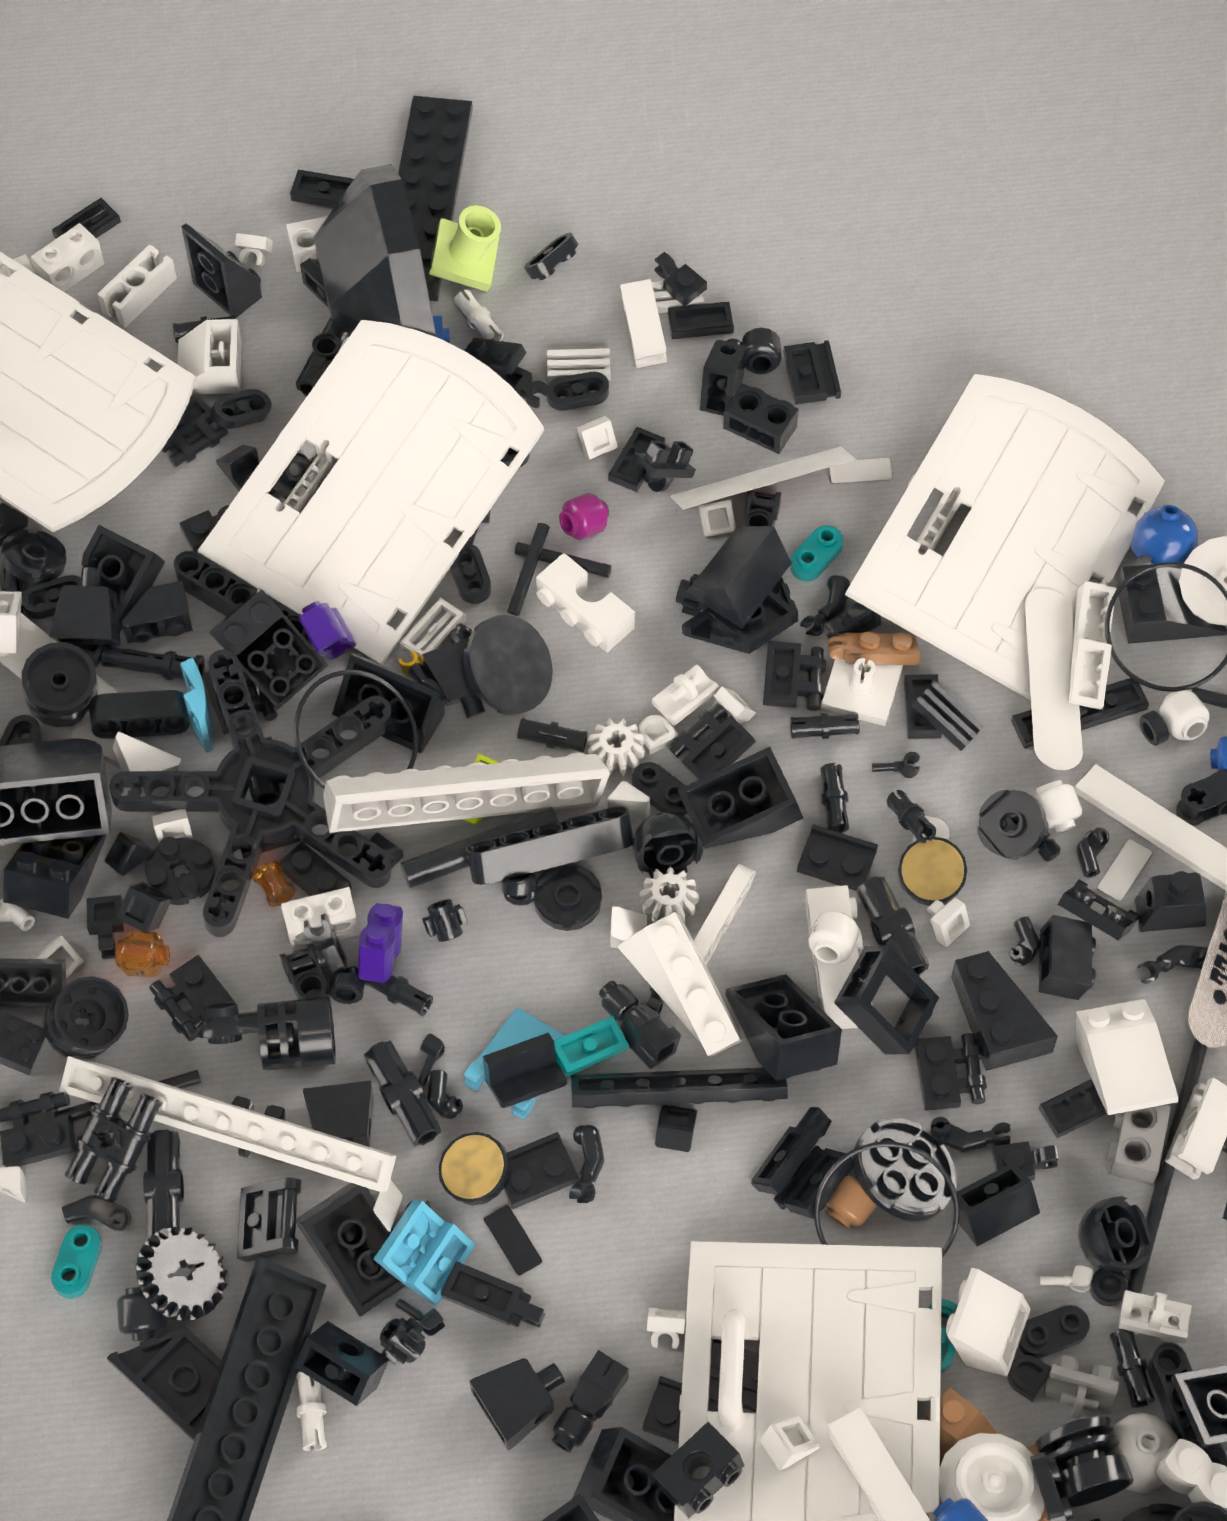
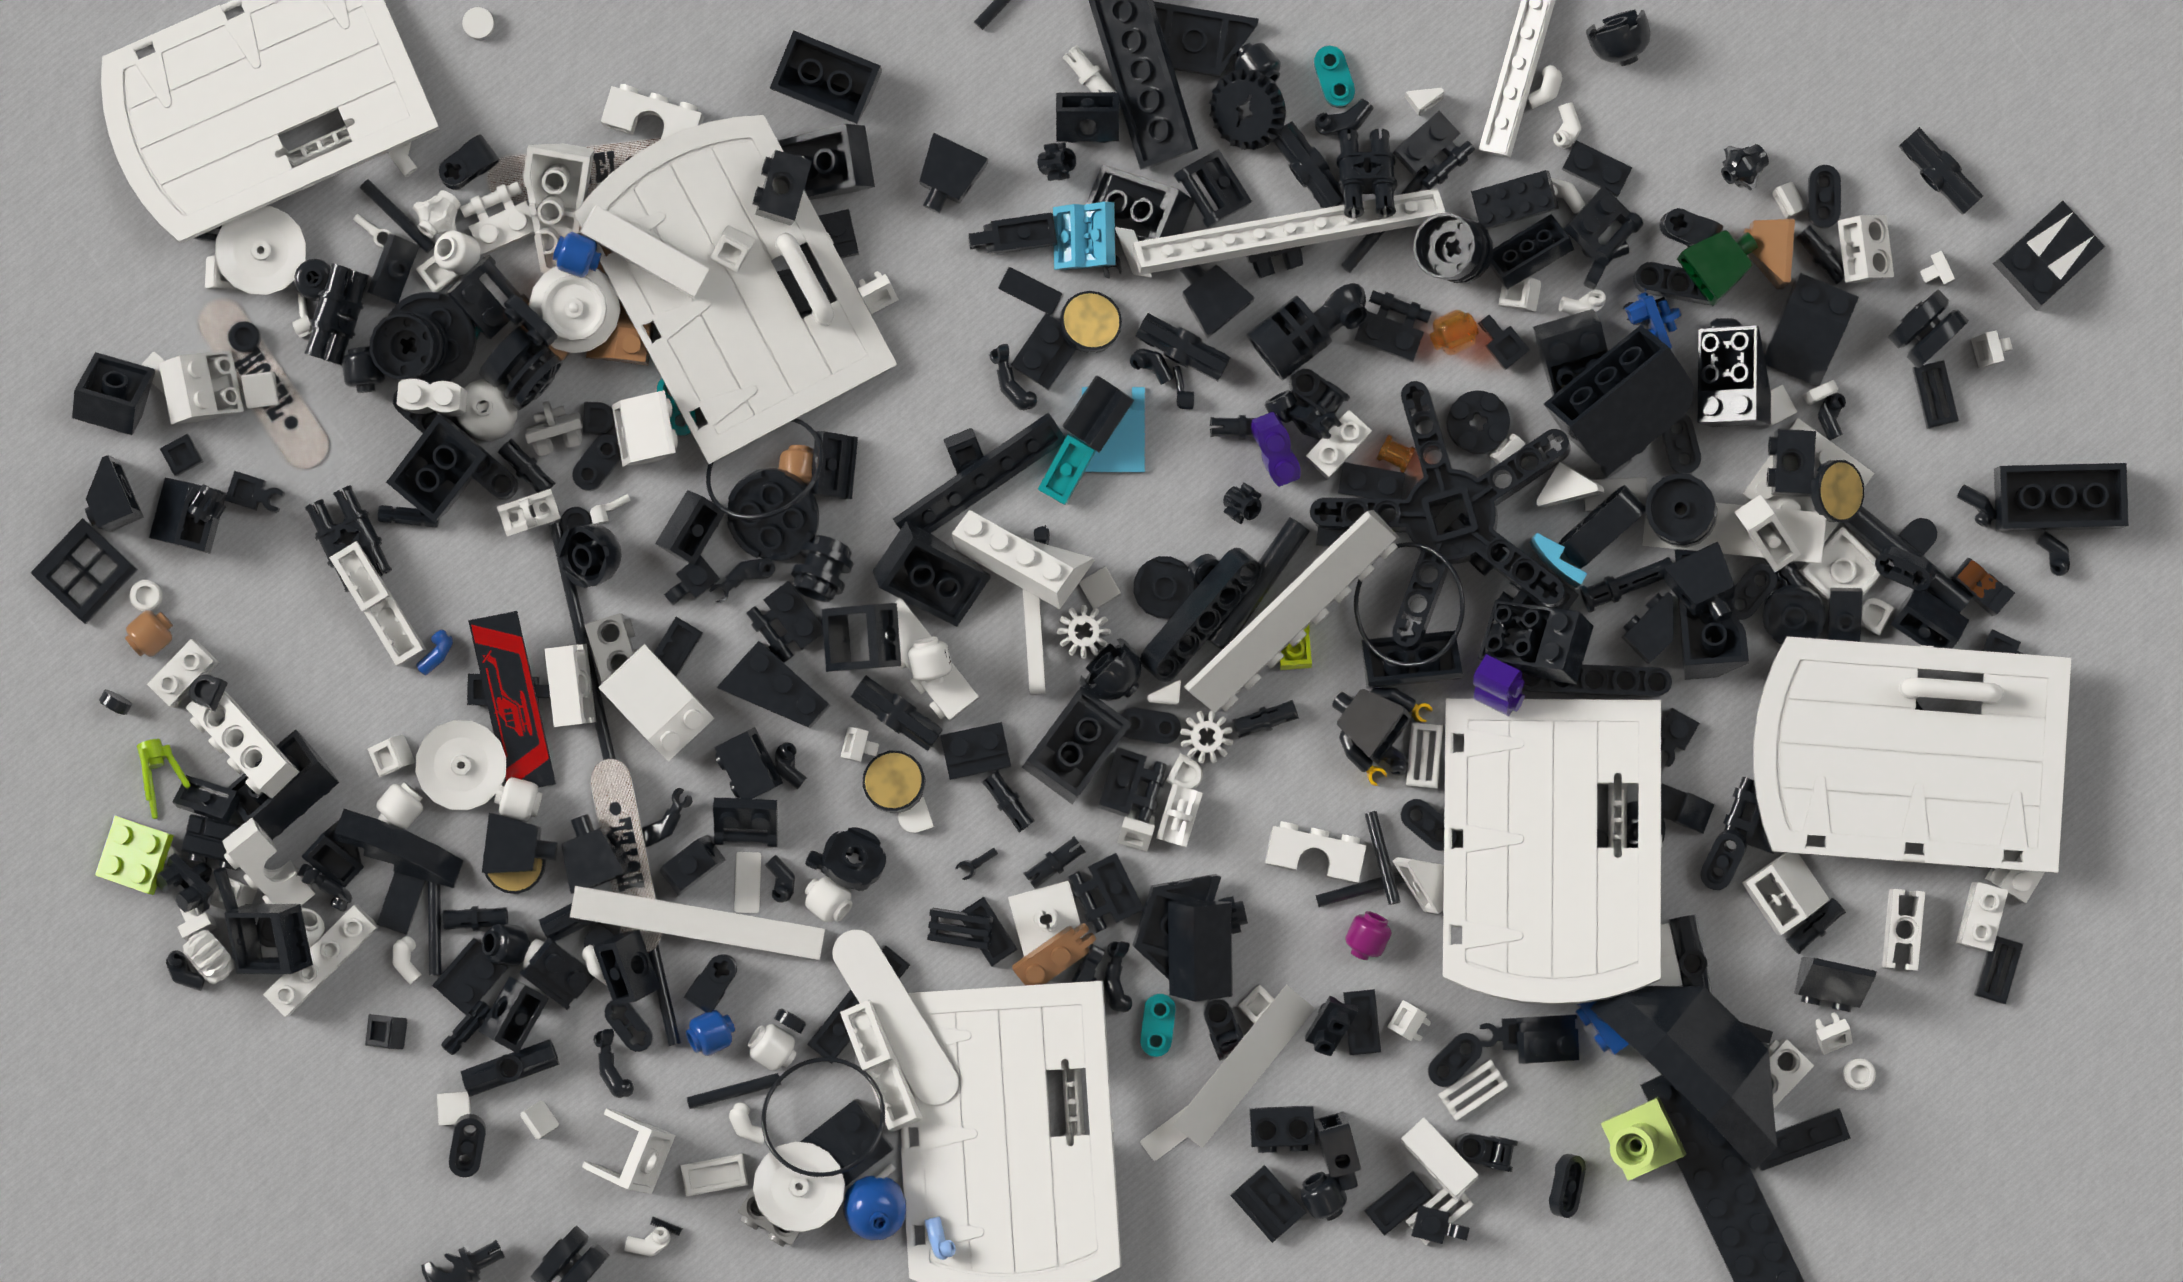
camera: 150 degrees right, 25 degrees up
(127, 853) = (1526, 408): black slope -> none
(144, 907) = (1477, 367): black brick -> none
(255, 214) = (1859, 1074): none -> white tile
(430, 1321) = (1049, 189): black hand -> none
(478, 316) = (1589, 1084): white pin -> none
(503, 528) = (1424, 881): none -> white slope
(508, 664) = (1334, 748): black tile -> none
(589, 1400) = (896, 202): black piece -> none
(600, 315) = (1488, 1151): none -> black piece
(640, 1024) = (1041, 511): black piece -> none
(791, 1152) = (865, 479): black hinge -> none
(885, 1089) = (821, 571): none -> black piece
(911, 816) = (936, 815): black pin -> none
(1122, 490) = (940, 1247): none -> light blue arm

